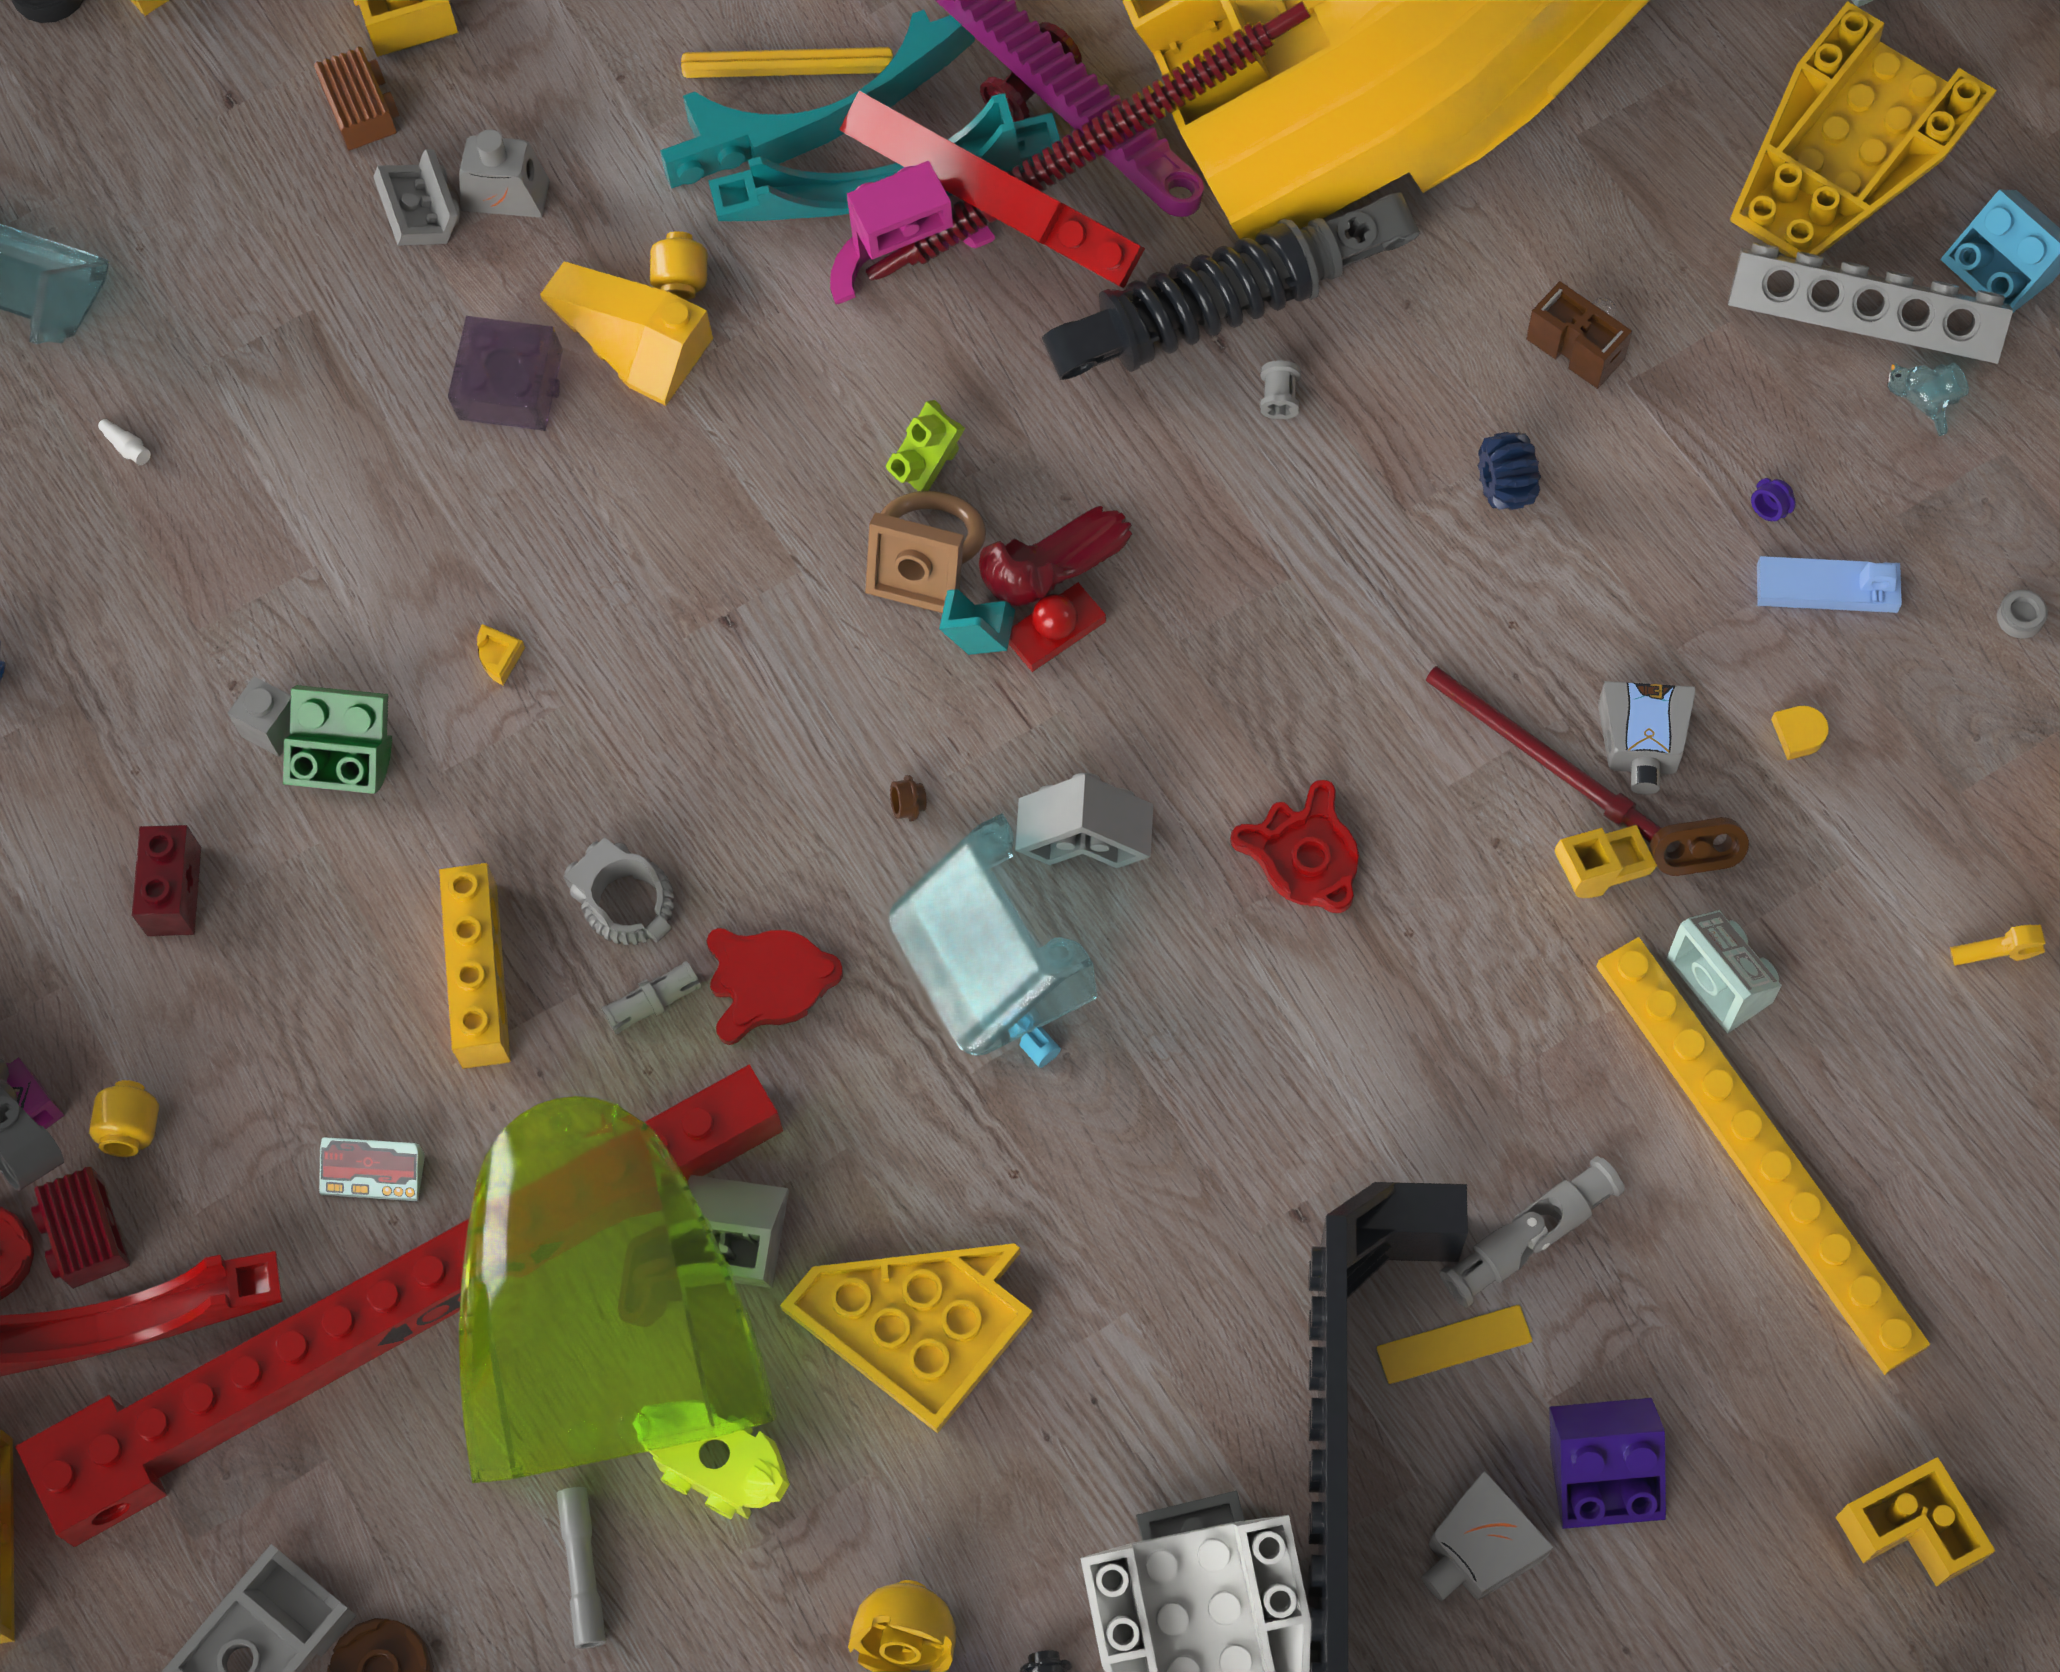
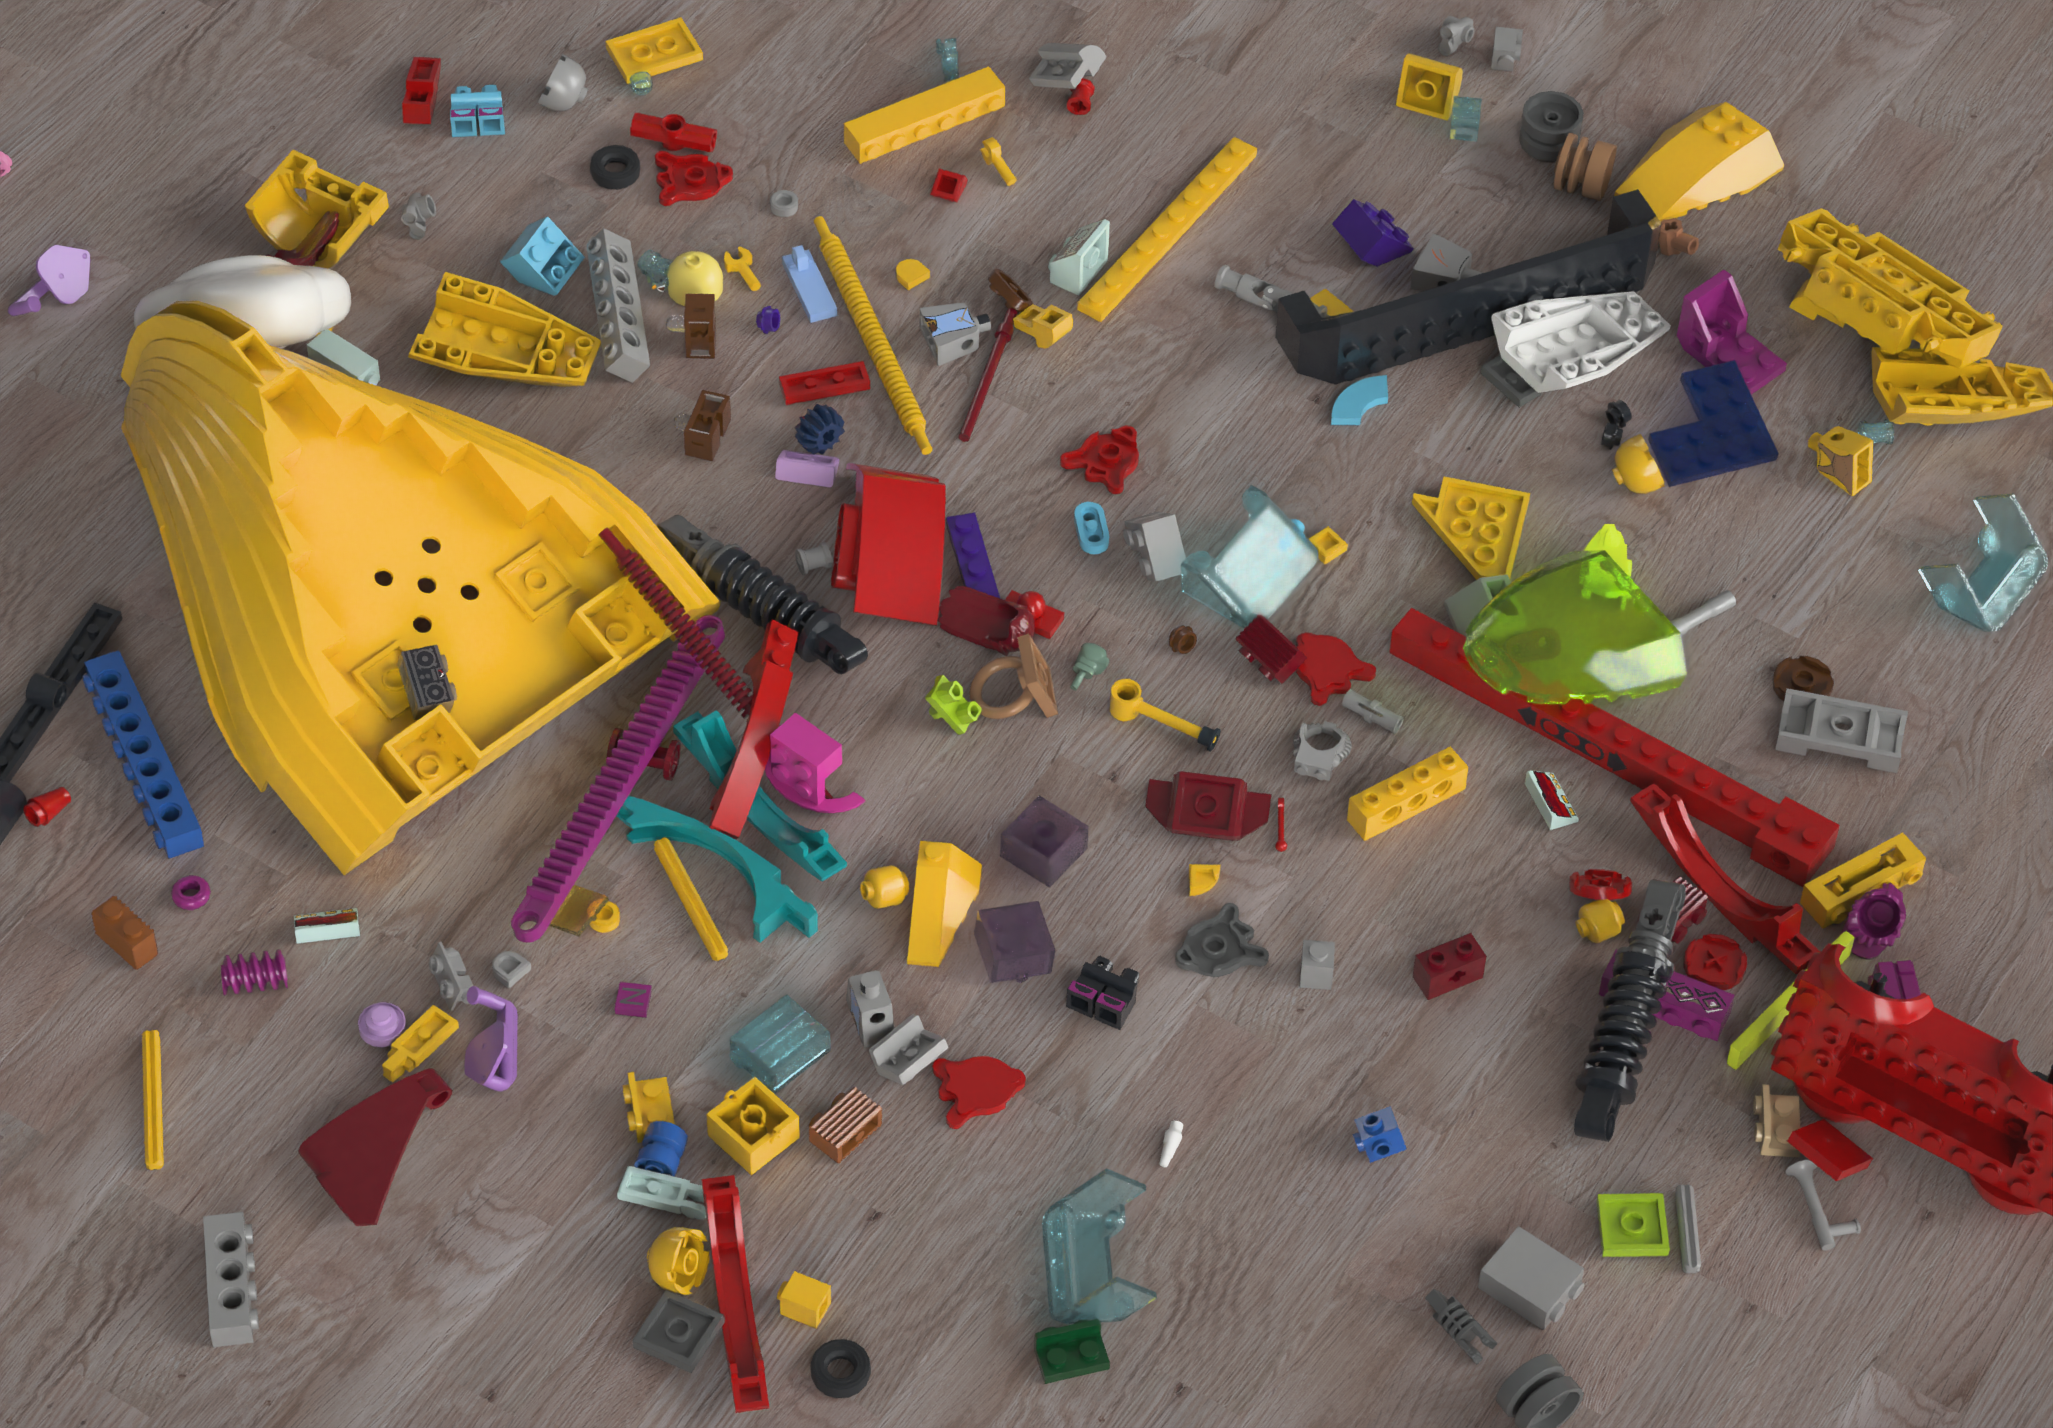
camera: 120 degrees left, 15 degrees down
(173, 1145) = (1600, 884): none -> red tile
(335, 265) = (976, 1086): none -> red tile
(337, 739) = (1313, 915): brick -> none
(376, 451) = (1103, 993): none -> black hips
(379, 625) = (1220, 945): none -> dark grey tile
(495, 774) = (1281, 845): none -> red hinge
(510, 72) = (780, 1044): none -> clear light blue brick
(586, 696) = (1207, 806): none -> dark red piece
(639, 466) = (1044, 841): none -> clear purple brick
(818, 898) = (1270, 648): none -> dark red brick
(830, 691) = (1128, 703): none -> yellow piece
(927, 660) = (1090, 661): none -> sand green piece
(978, 626) = (1054, 639): teal panel -> none
(993, 1084) = (1328, 544): none -> yellow tile
(1004, 1634) = (1611, 435): none -> black plate
(1173, 762) = (1094, 533): none -> medium azure plate
(1186, 593) = (971, 553): none -> dark purple plate
(1263, 479) = (892, 544): none -> red beam
(1263, 1270) = (1359, 398): none -> medium azure tile
(1455, 459) = (806, 468): none -> lavender slope
(1613, 525) = (824, 382): none -> red plate
(1778, 385) = (698, 325): none -> reddish brown piece
(1815, 632) = (873, 335): none -> yellow hose
(1896, 433) = (694, 274): none -> light yellow cylinder
(1905, 509) = (742, 266): none -> yellow bar
(1927, 1513) = (1330, 113): yellow brick -> none
(1978, 861) = (948, 185): none -> red slope

